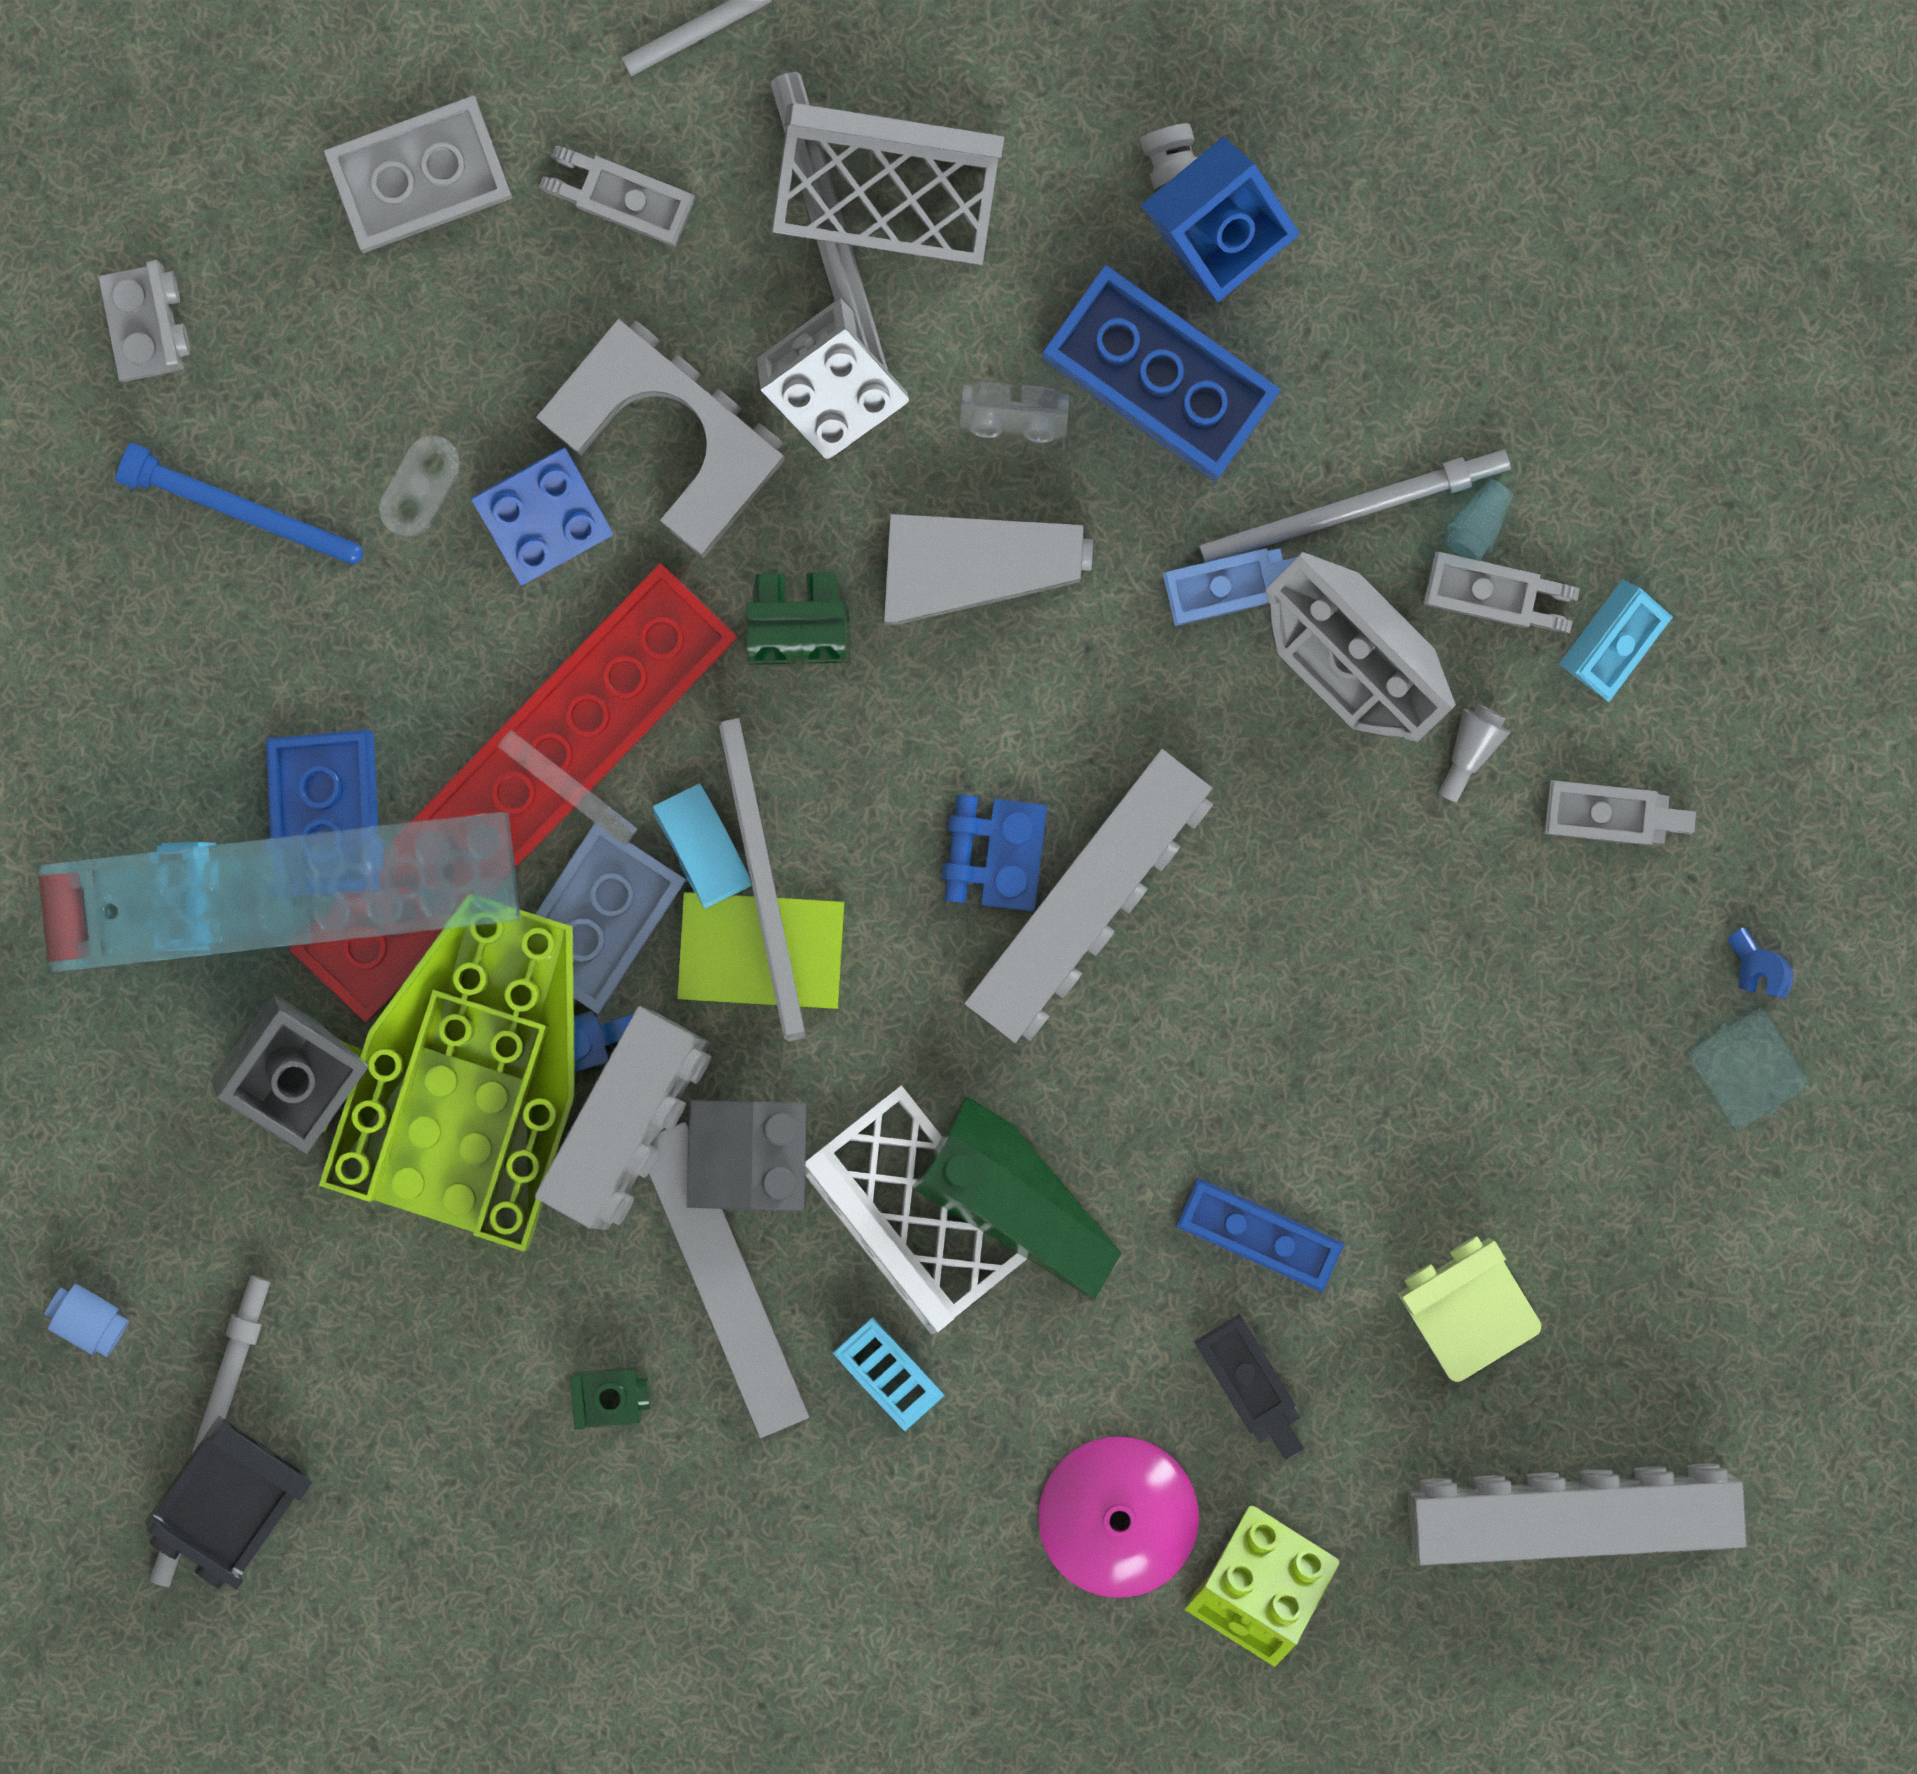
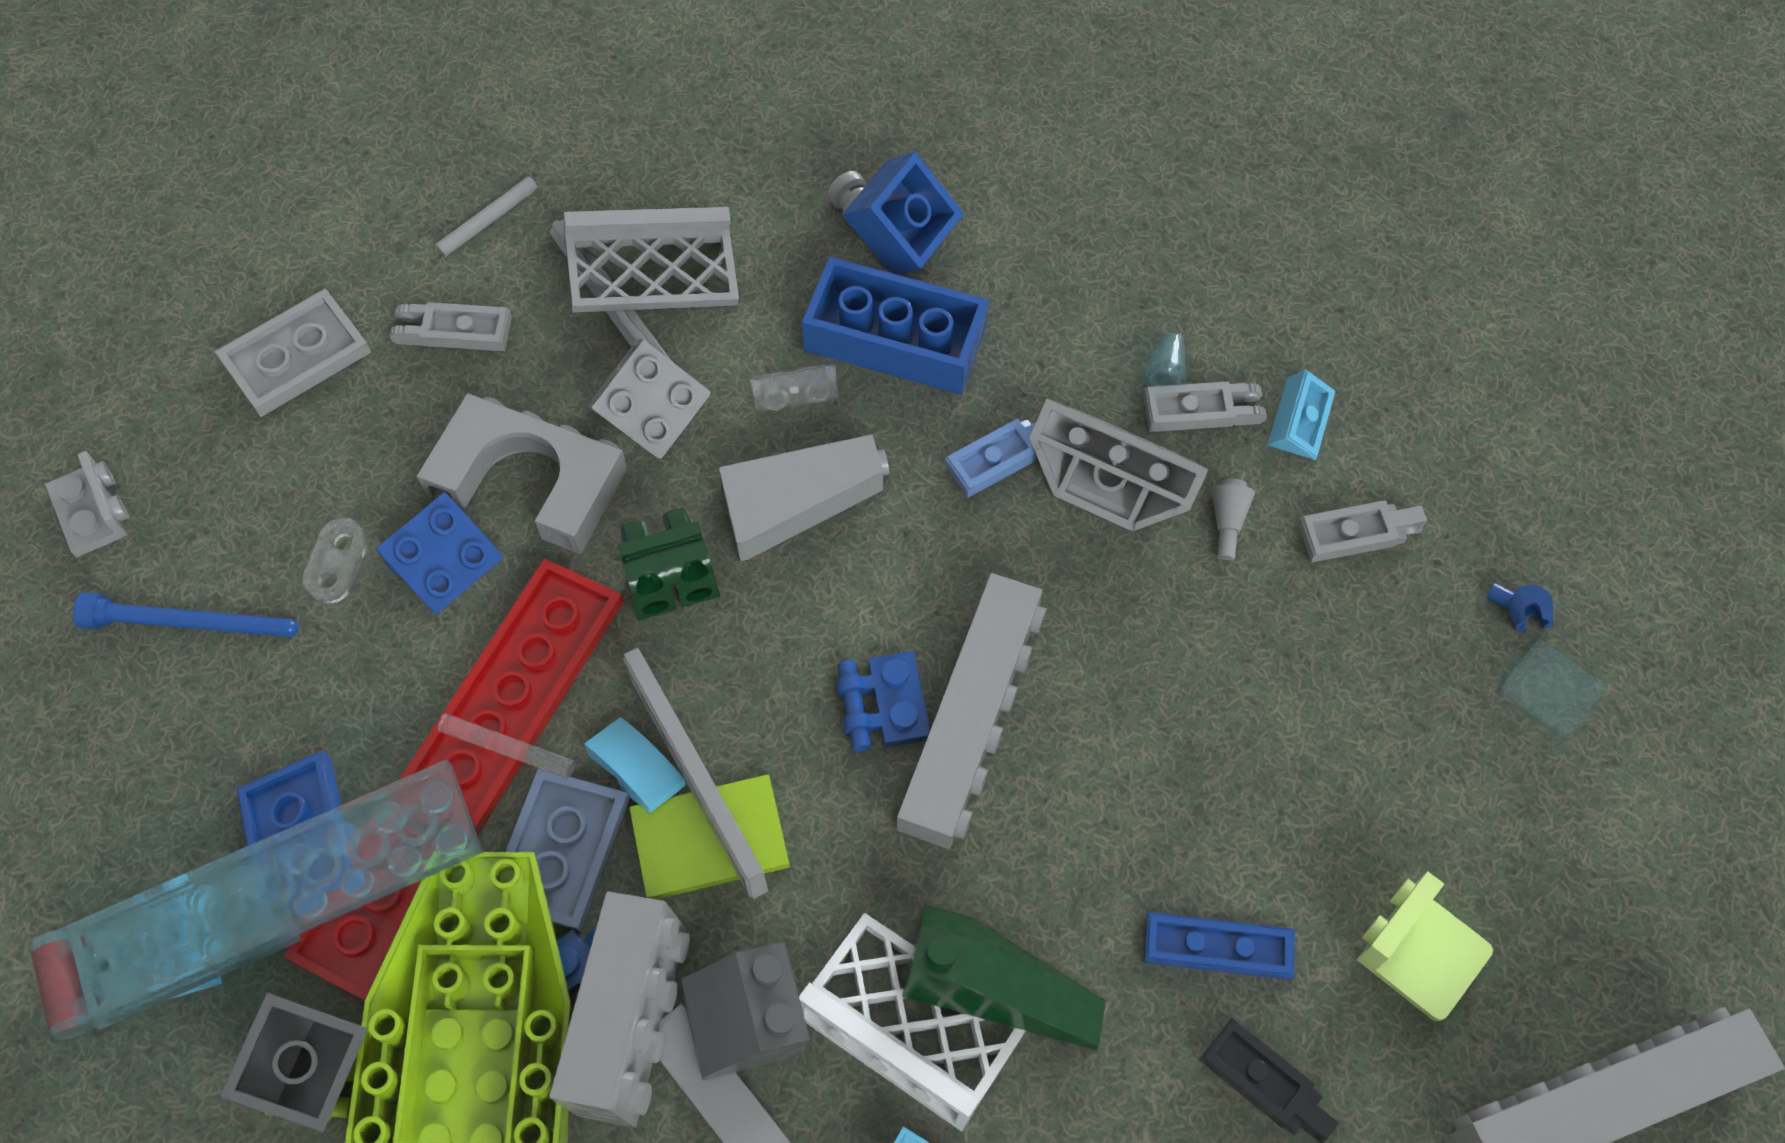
camera: 15 degrees left, 25 degrees down
(1454, 475) = (1134, 342): light grey bar -> none

